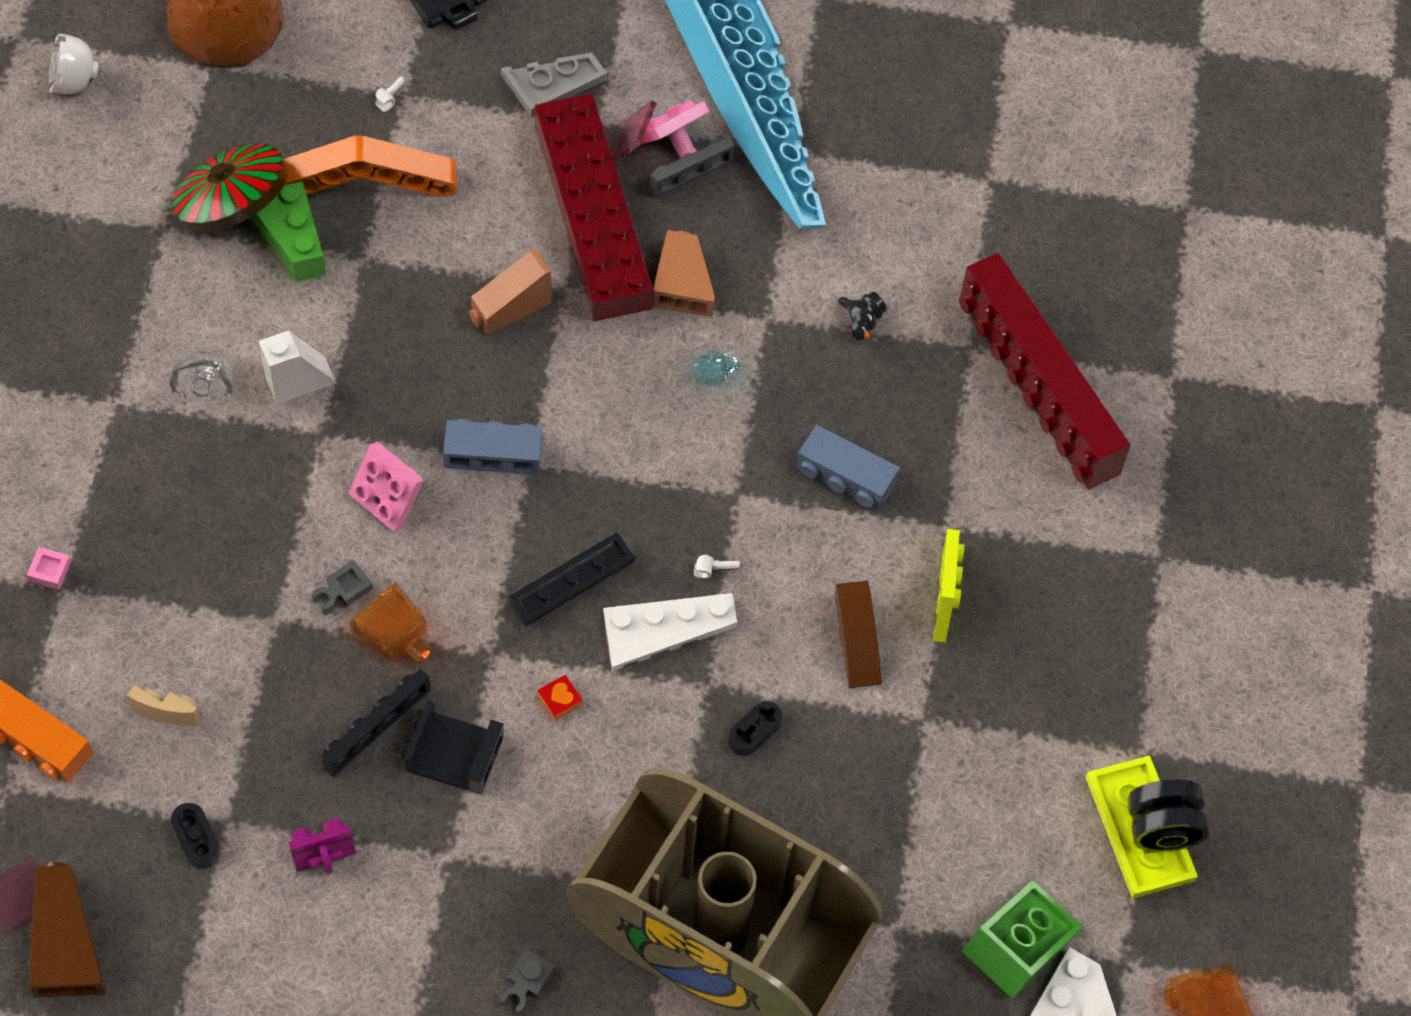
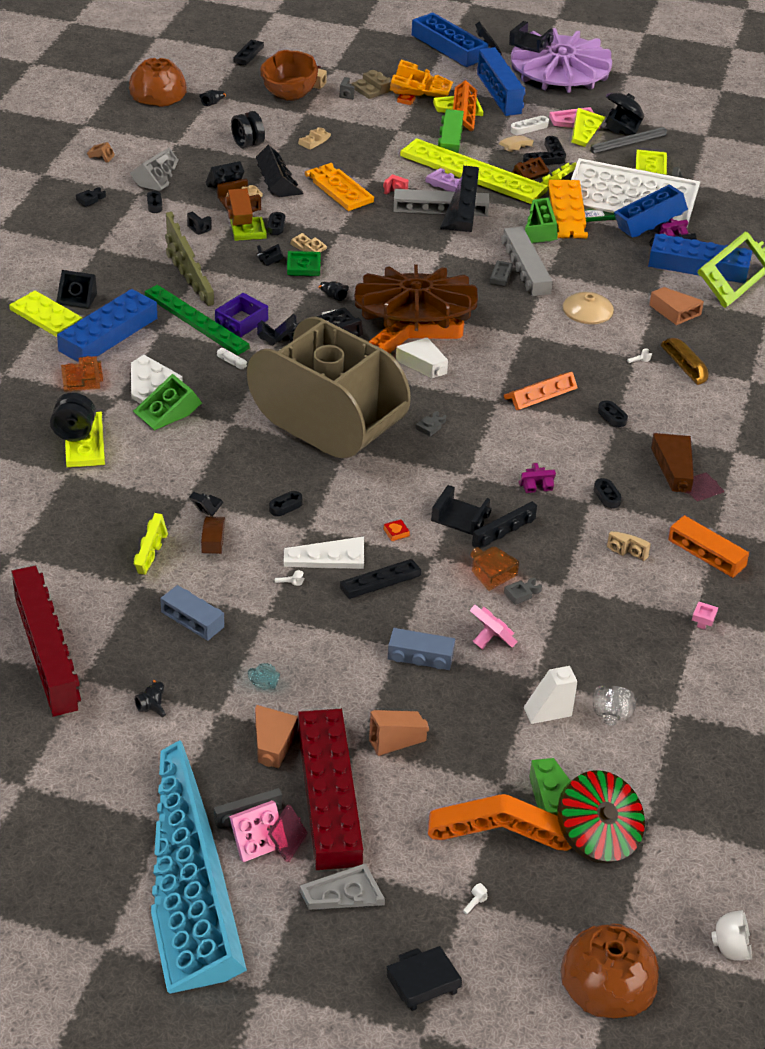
camera: 170 degrees left, 20 degrees down
(886, 689) = (205, 503): none -> black bracket

